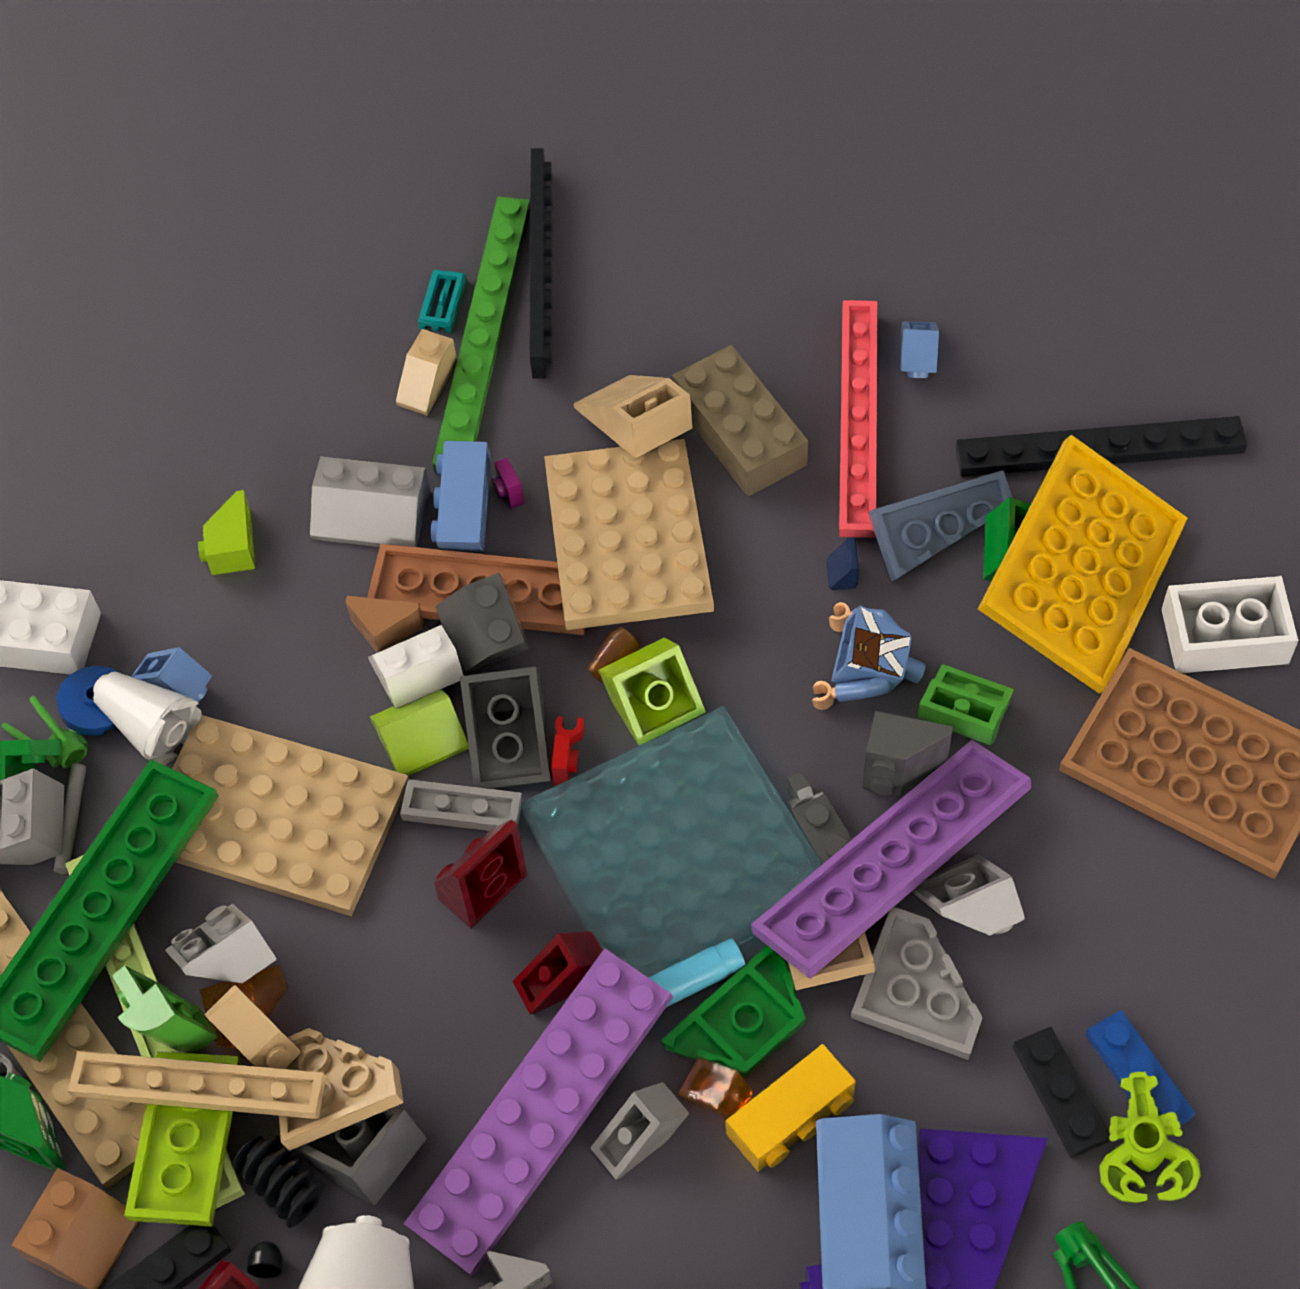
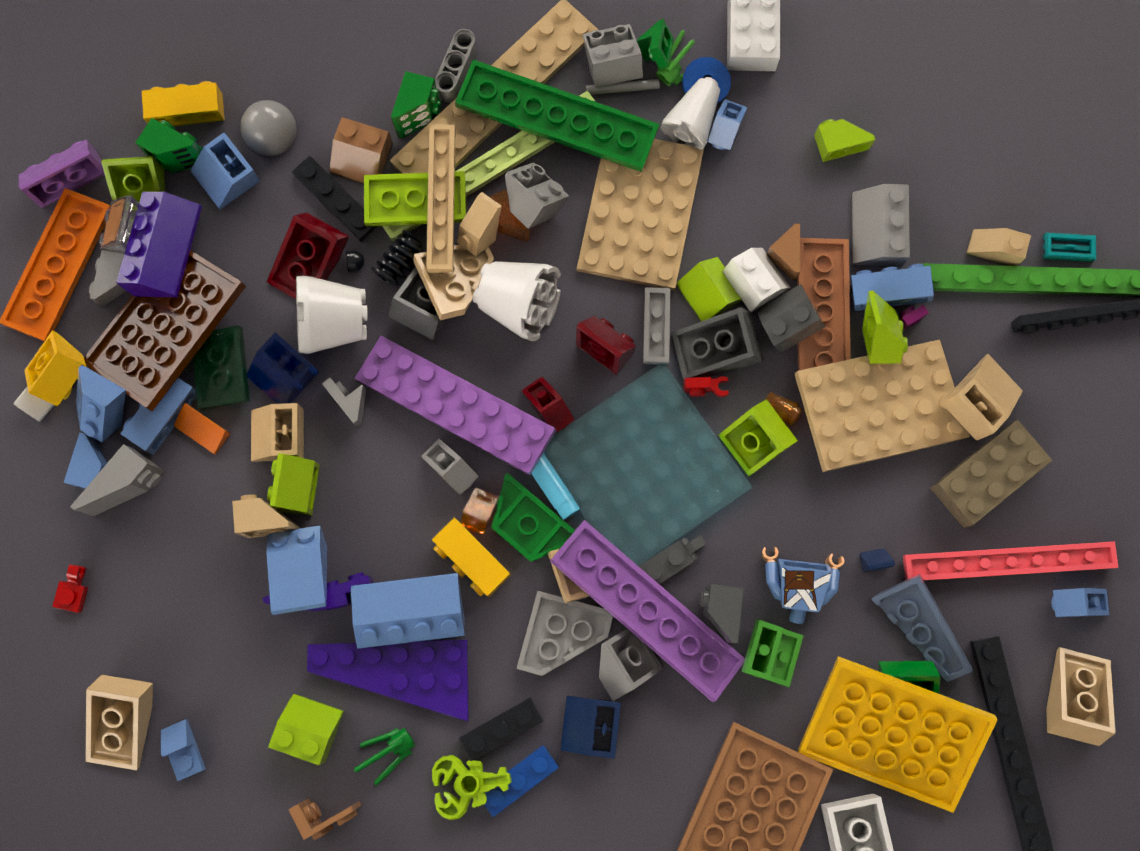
camera: 80 degrees right, 20 degrees up
(161, 1013) = (484, 165): bright green brick -> none
(381, 988) = (519, 295): none -> white cone
(526, 514) = (882, 332): none -> lime slope
(1042, 361) = (1081, 698): none -> tan slope
(1062, 952) = (590, 726): none -> dark blue slope

